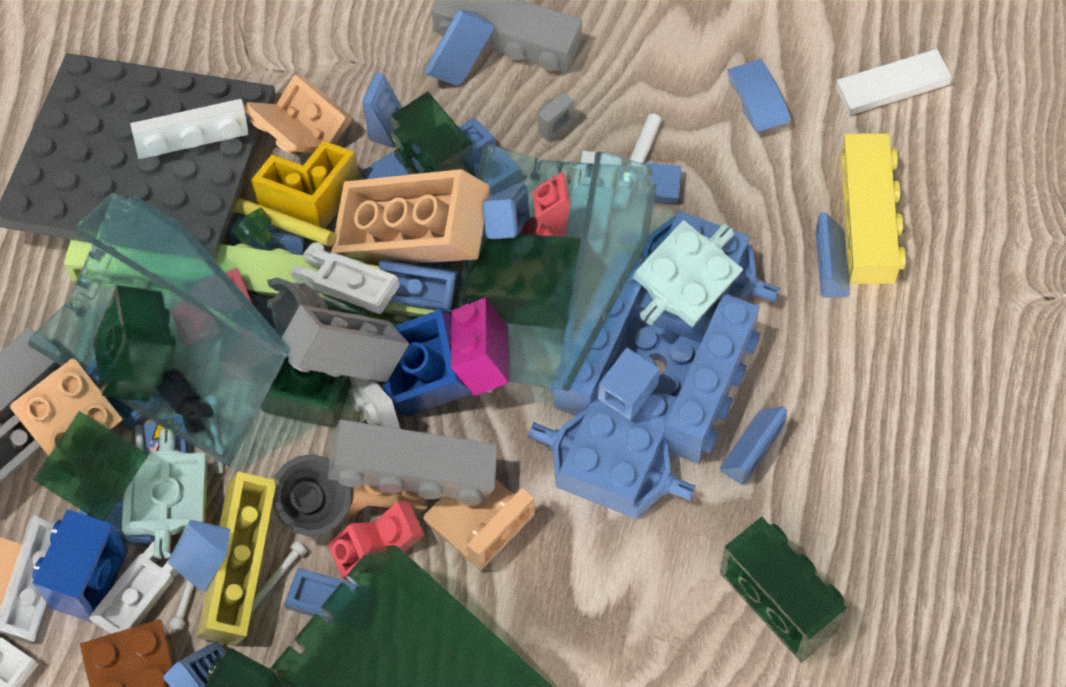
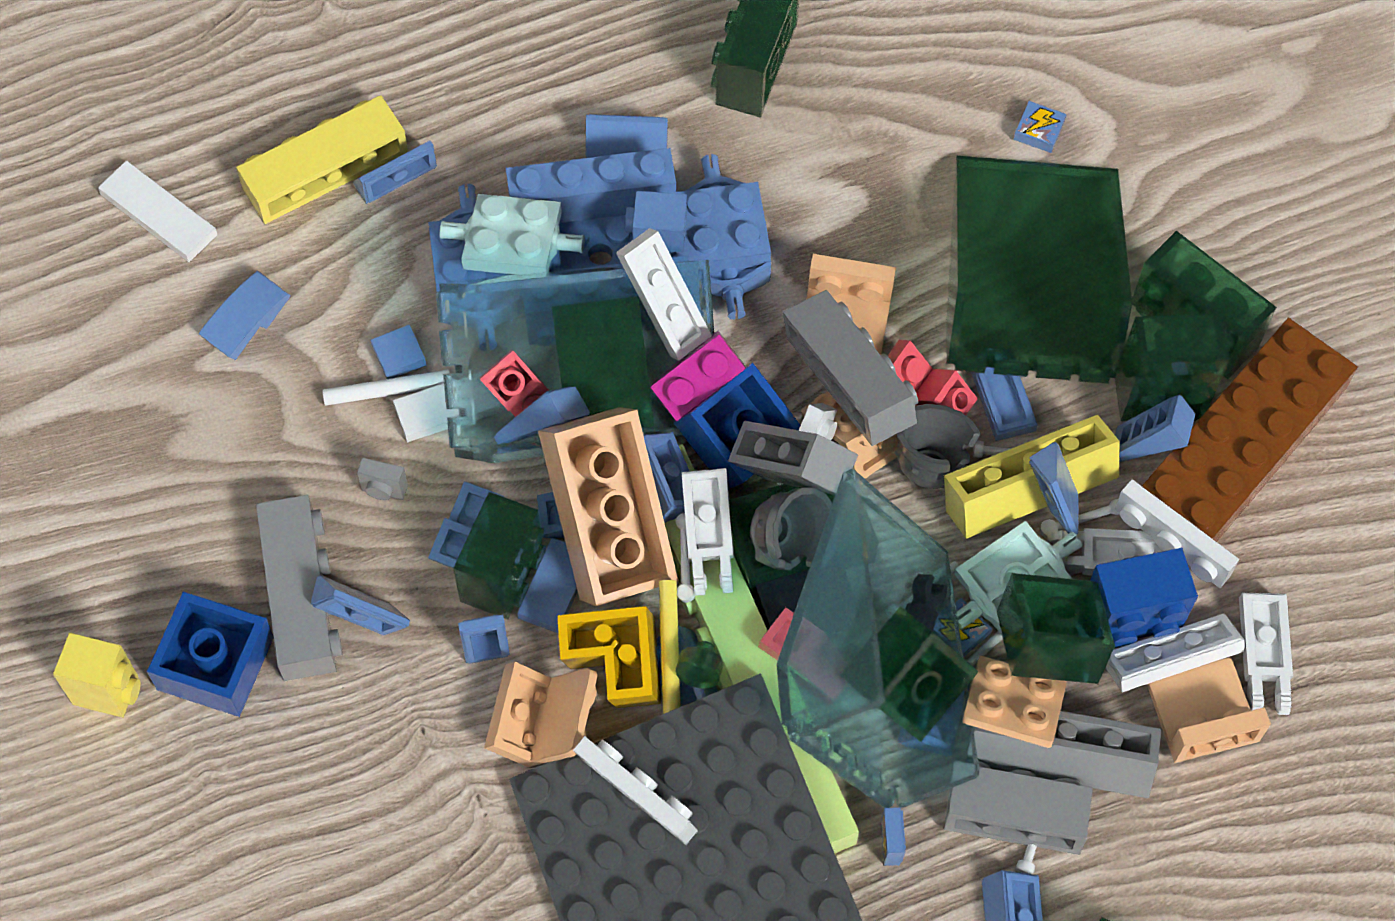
camera: 125 degrees left, 0 degrees up
(48, 293) = (893, 836): none -> medium blue tile
(66, 635) = (1172, 531): none -> white plate
(544, 326) = (664, 294): none -> white plate

